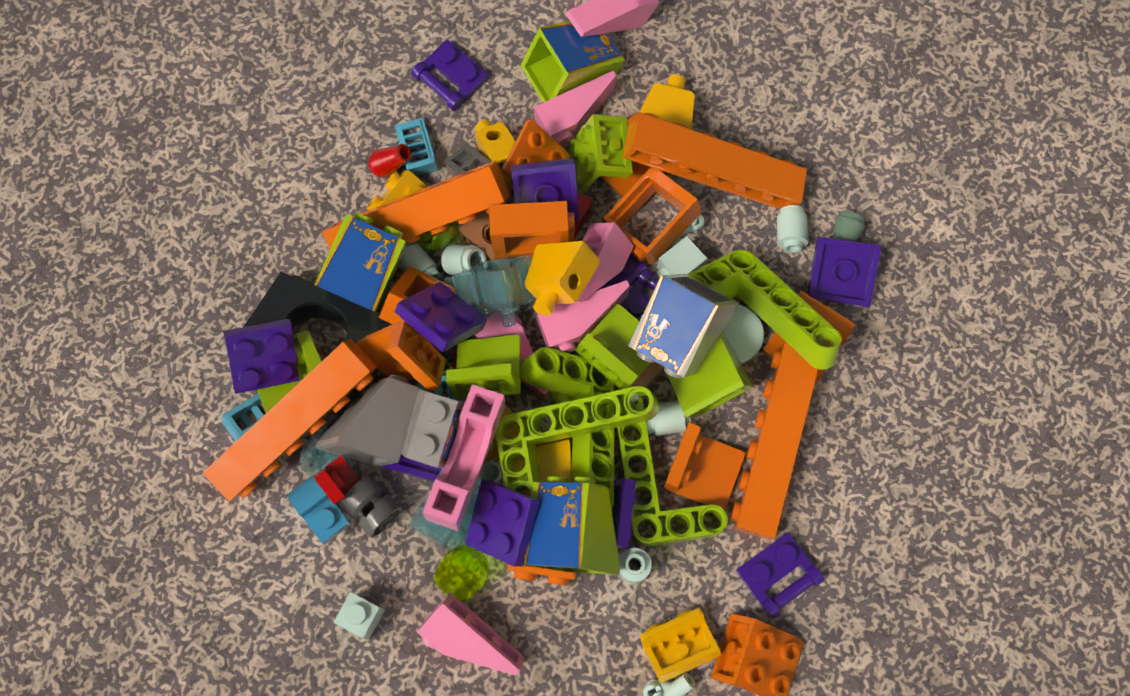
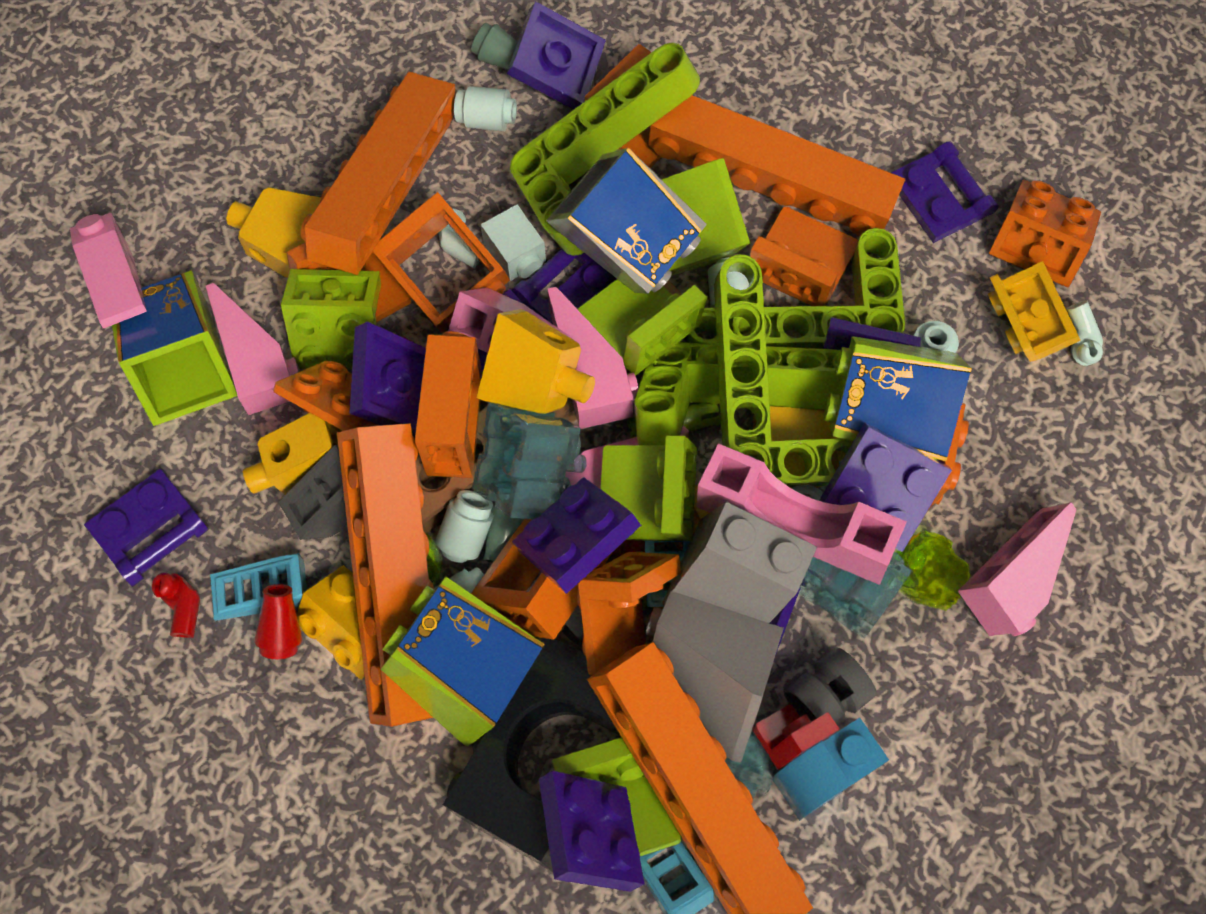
camera: 85 degrees left, 5 degrees down
(359, 616) = (989, 720): light aqua brick -> none
(405, 105) = (181, 599): none -> red arm

